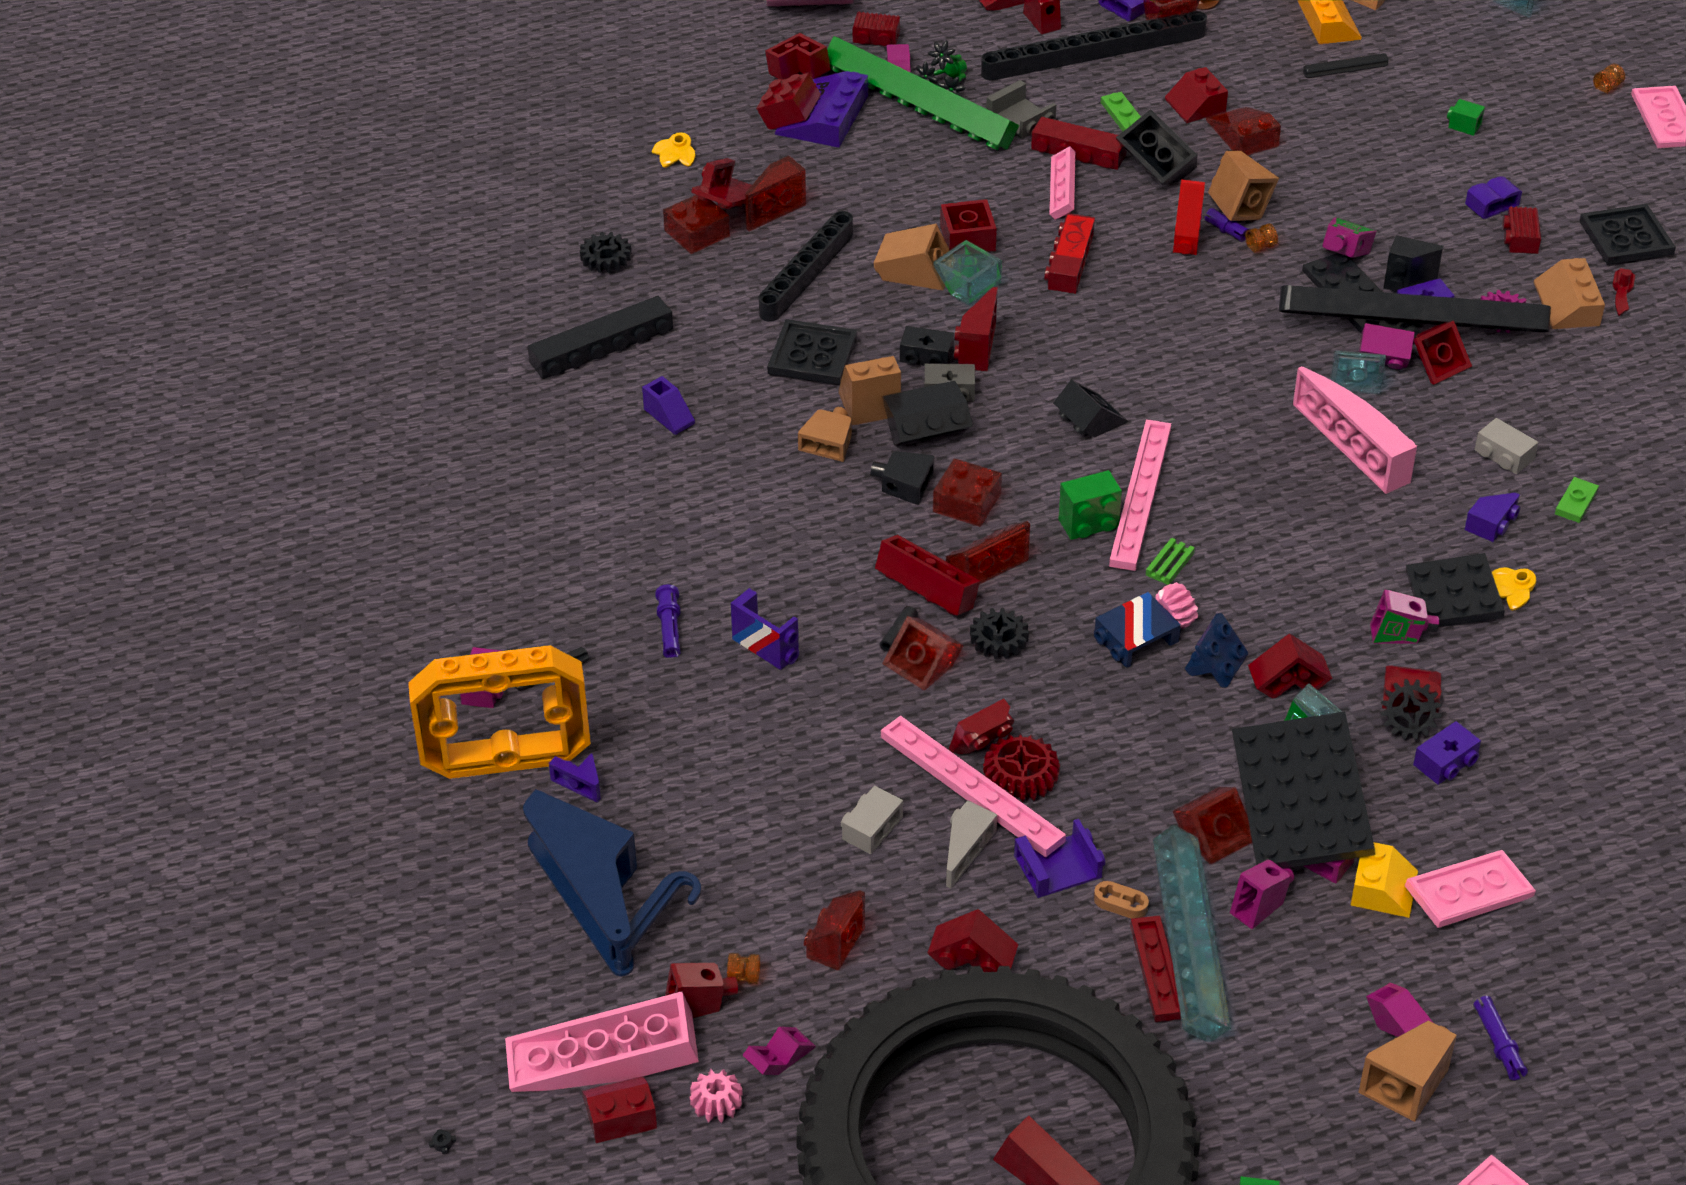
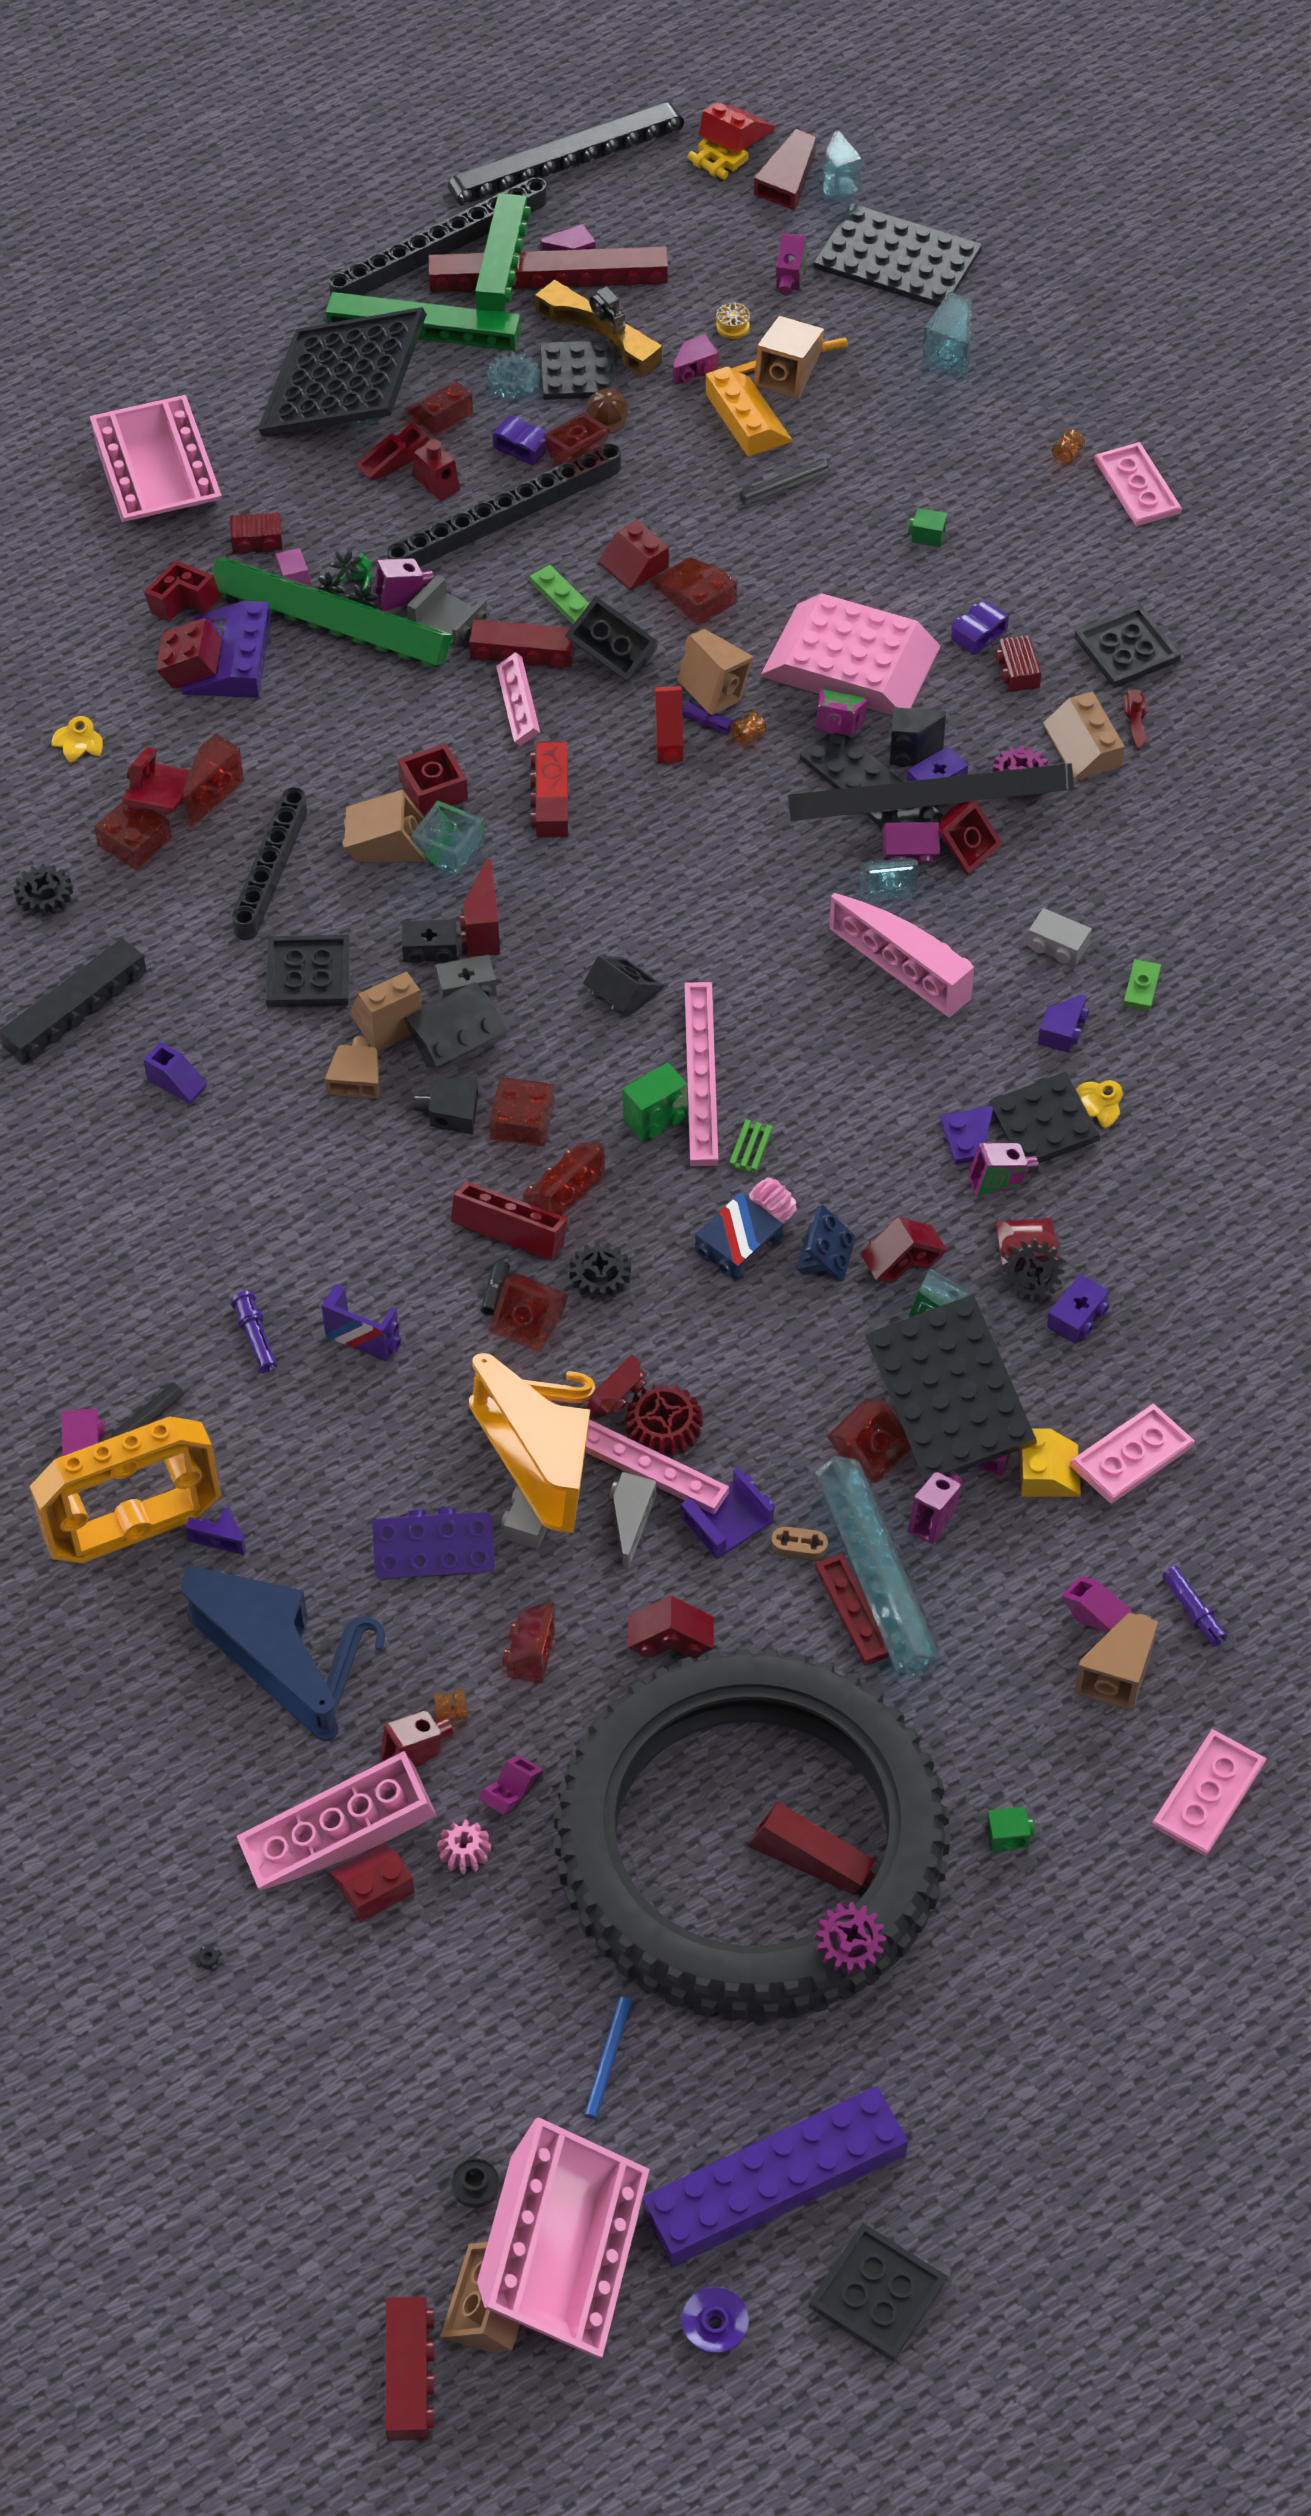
camera: 15 degrees left, 10 degrees up
(772, 826) = (433, 1544): none -> dark purple bracket
(895, 752) = (534, 1437): none -> piece
(984, 79) = (399, 582): none -> magenta torso
(1371, 585) = (966, 1131): none -> dark purple wing
(1374, 195) = (853, 652): none -> bright pink slope

